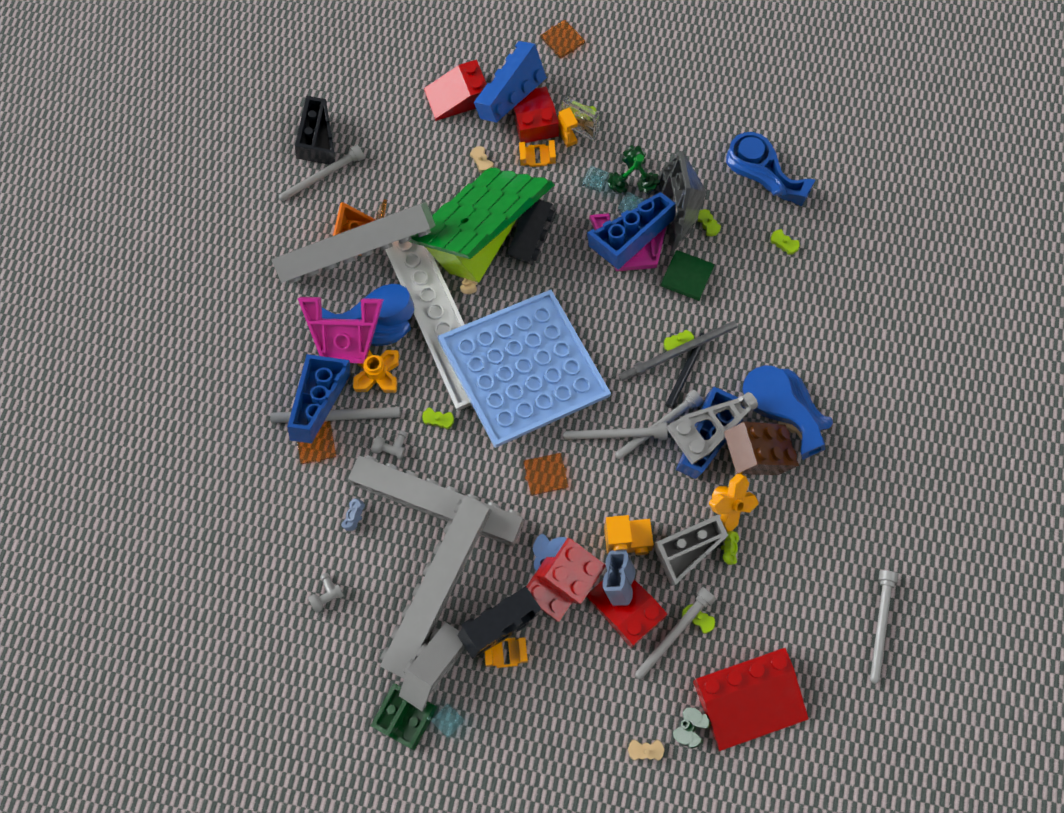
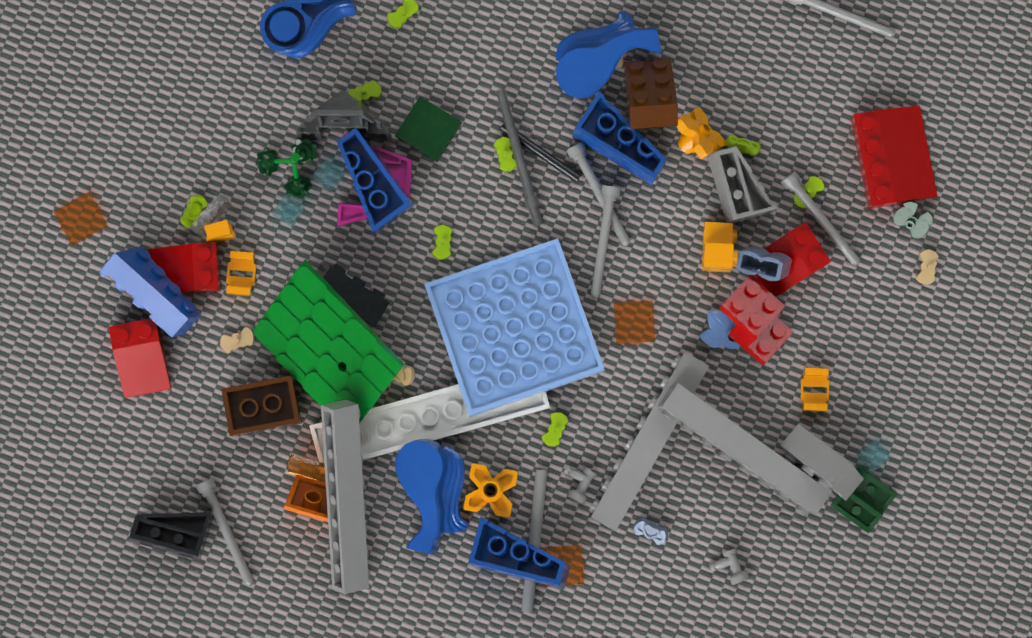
camera: 85 degrees left, 15 degrees up
(342, 337) = (455, 520): dark pink wing -> none
(427, 176) = (261, 406): none -> reddish brown brick
(498, 622) = (790, 391): black wedge -> none
(591, 302) = (442, 248): none -> lime piece
(689, 438) = (631, 165): light grey plate -> none

